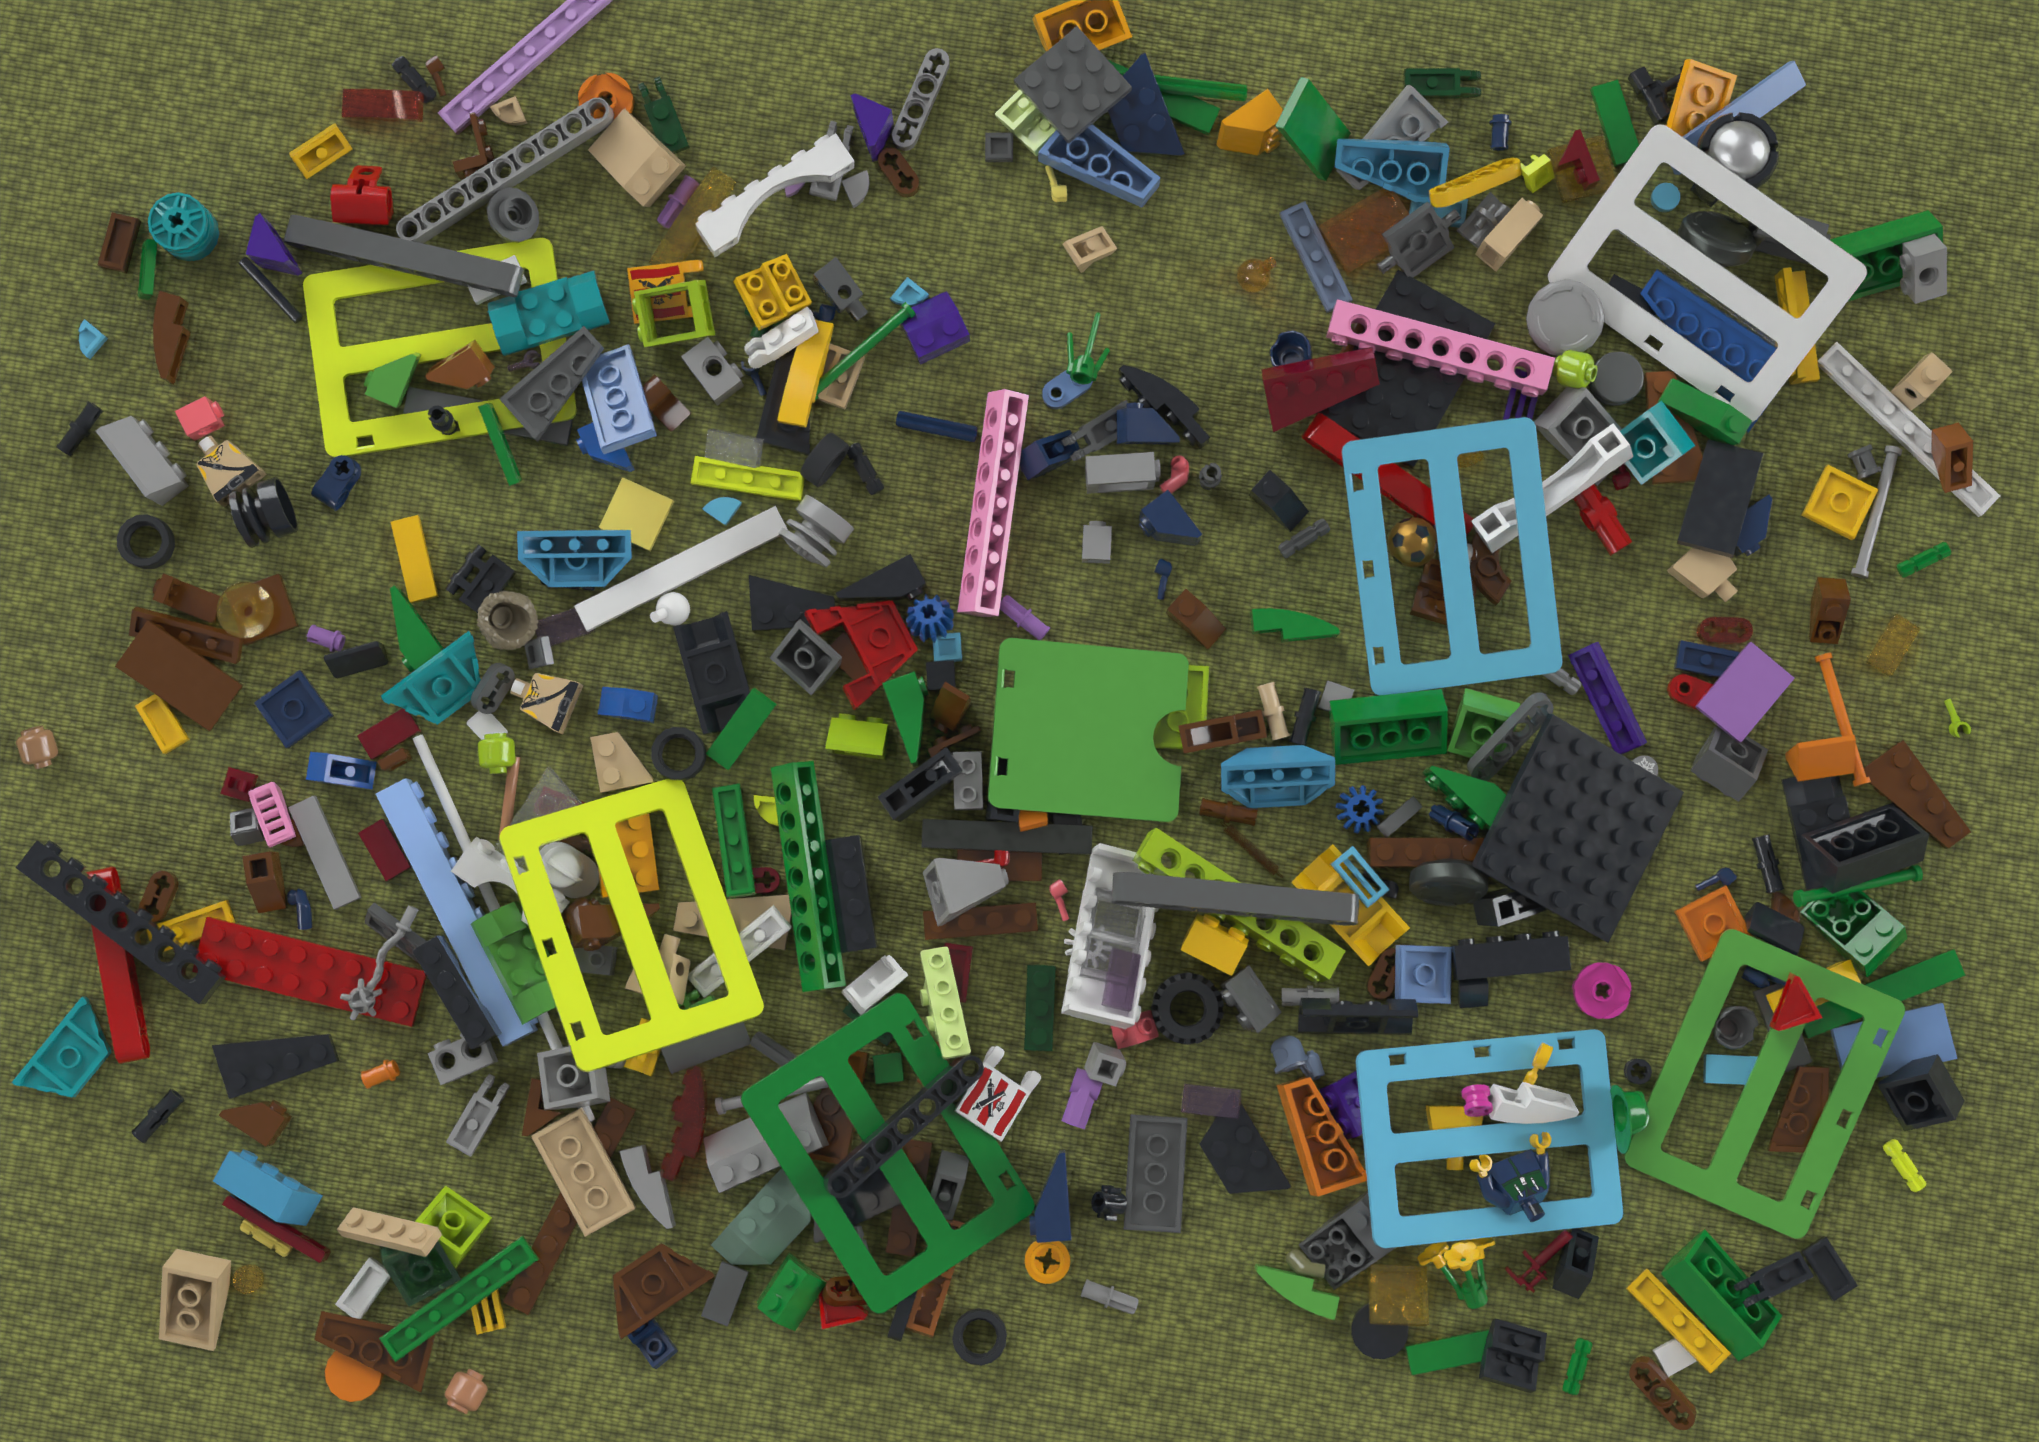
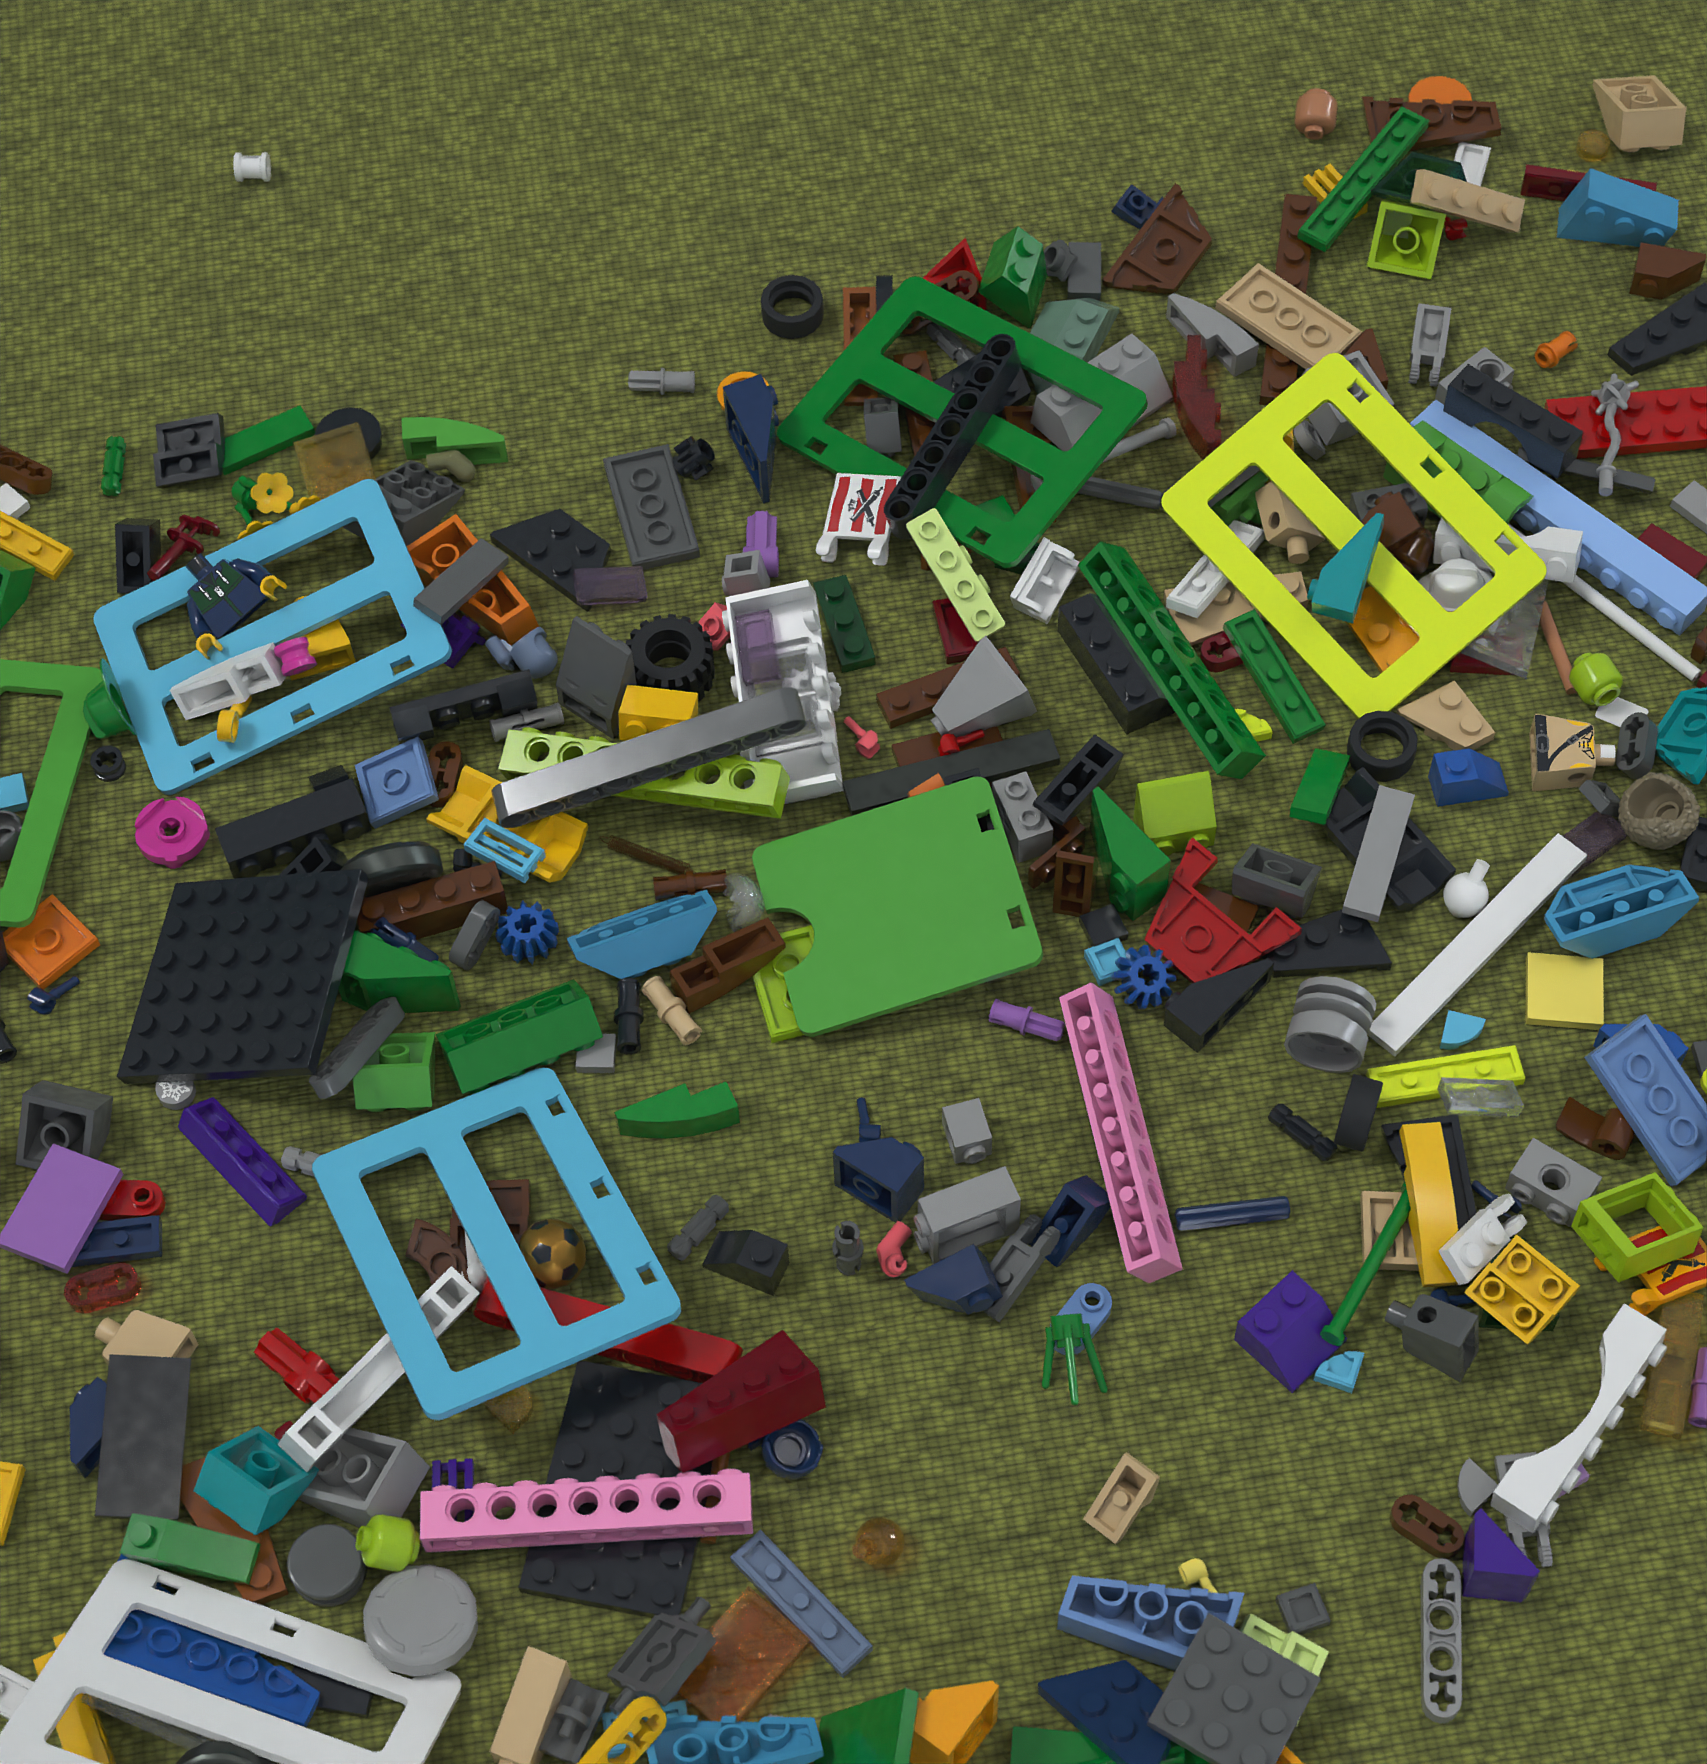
camera: 160 degrees right, 25 degrees down
(652, 884) = (1345, 575): none -> teal slope
(724, 654) = (1378, 853): none -> light grey tile
(744, 1307) = (1059, 259): none -> dark grey animal
(1160, 394) = (954, 1342): black slope -> none
(1195, 619) = (809, 1084): reddish brown slope -> none
(1195, 776) = (747, 900): none -> clear hair
(1332, 1118) = (460, 581): none -> dark grey tile

